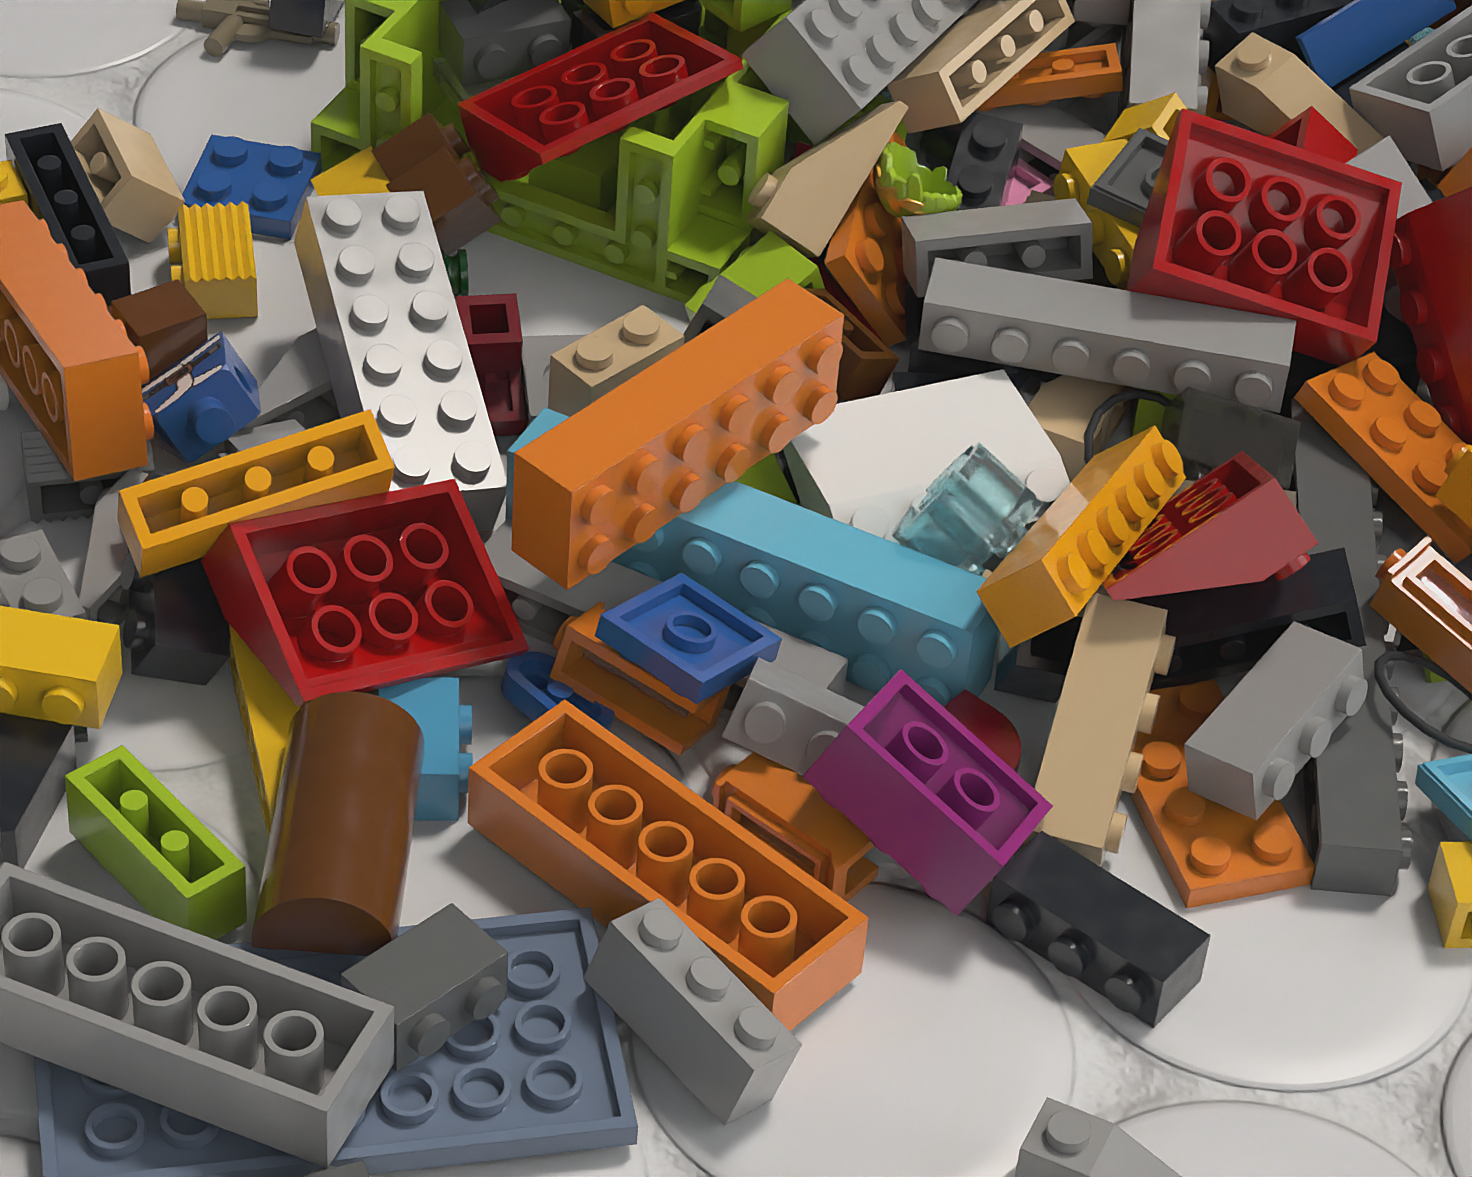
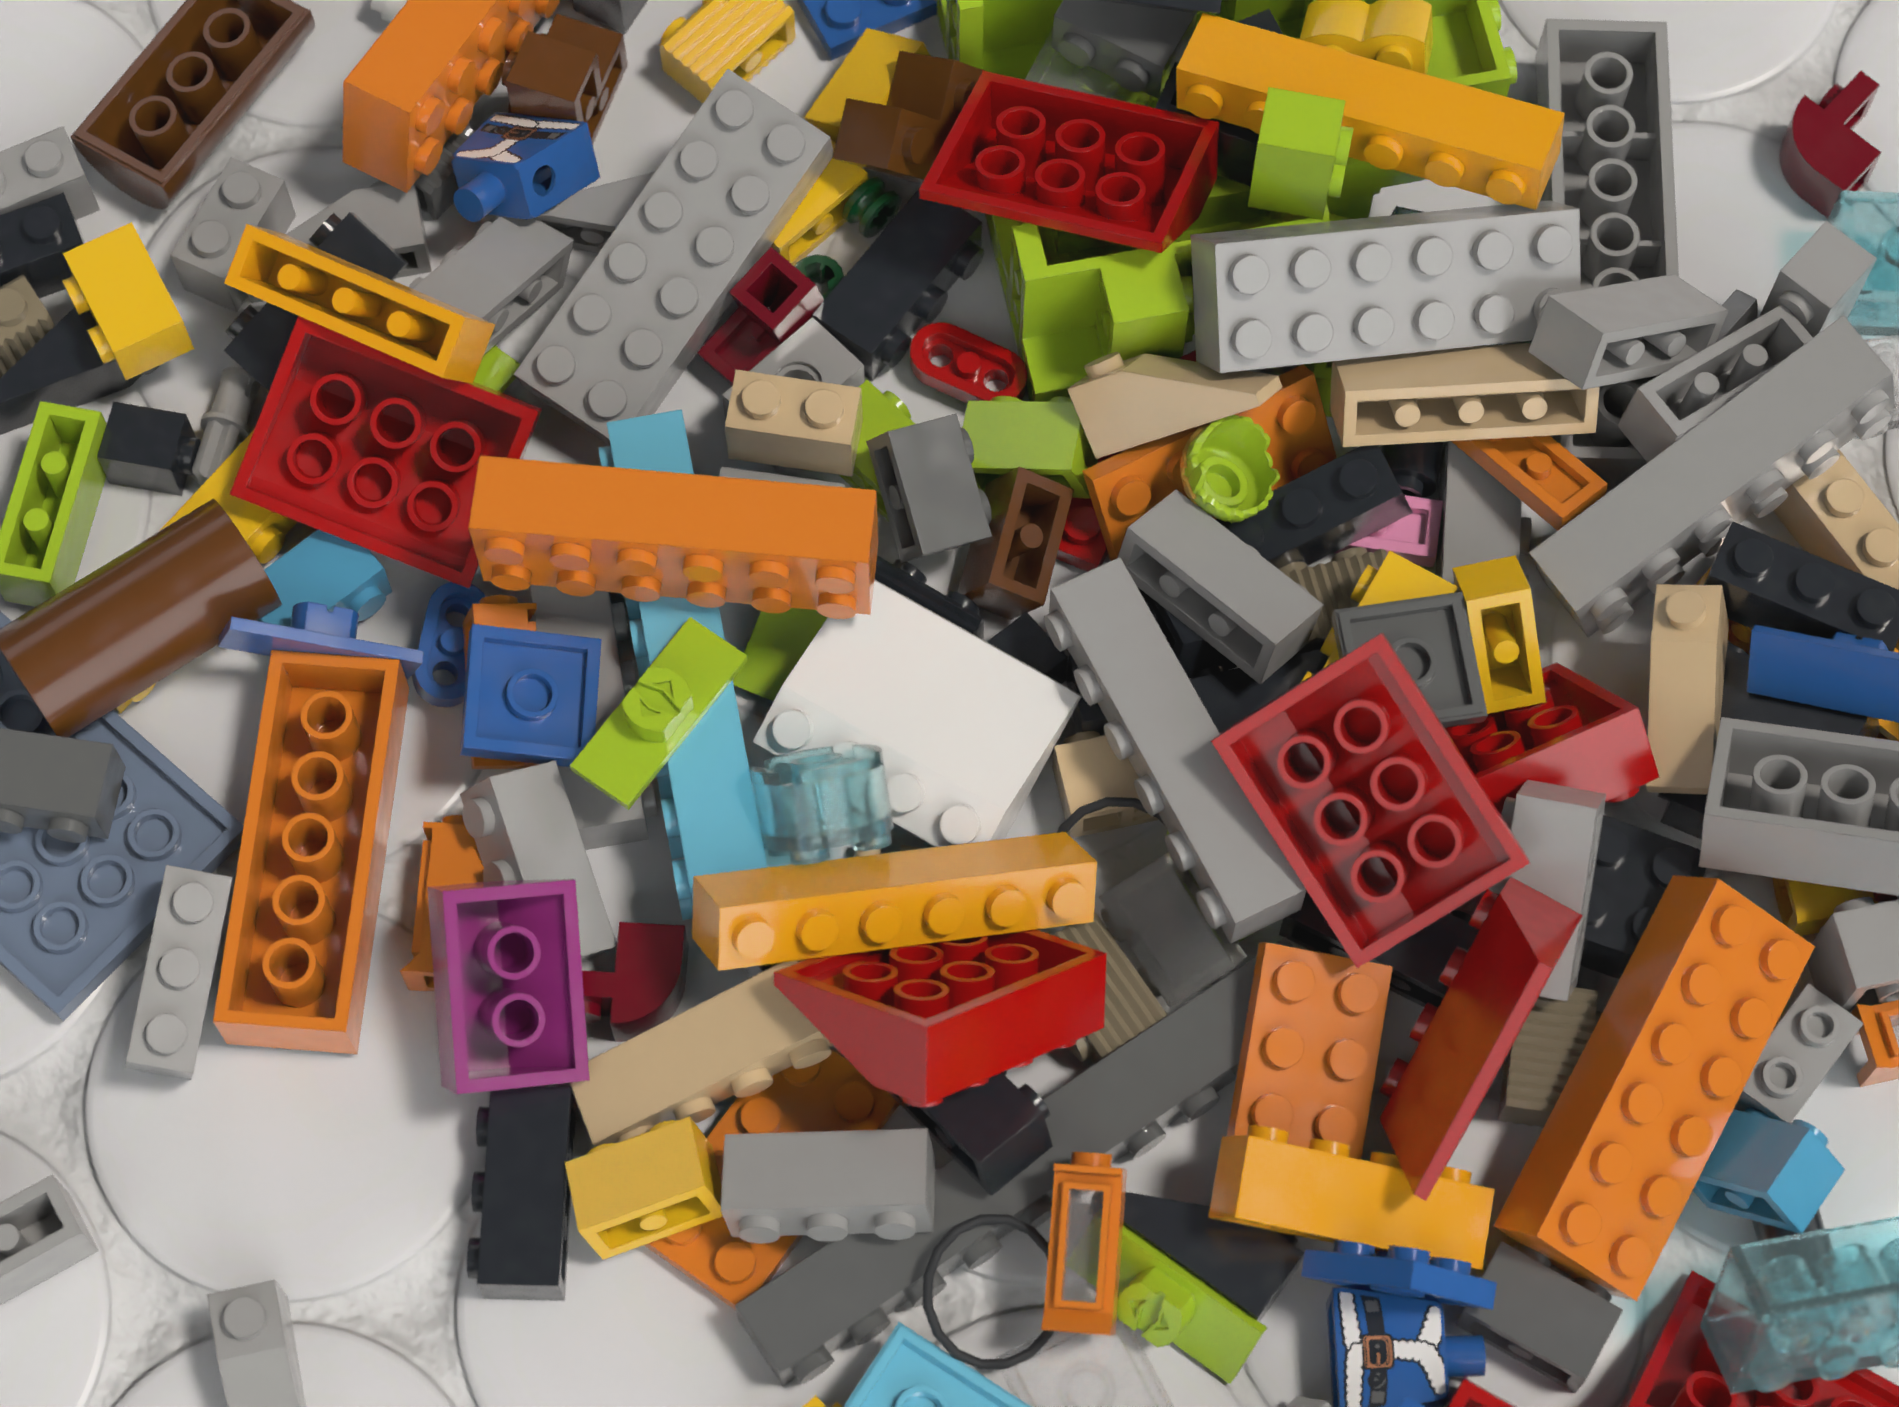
camera: 55 degrees right, 25 degrees up
(179, 759) = (148, 448): none -> black brick
(198, 719) = (226, 422): none -> light grey axle
(477, 731) = (314, 631): none -> piece
(530, 261) = (901, 281): none -> black brick
(661, 293) = (971, 366): none -> red plate
(796, 559) = (659, 713): none -> lime piece
(1173, 833) = (645, 1187): none -> yellow brick

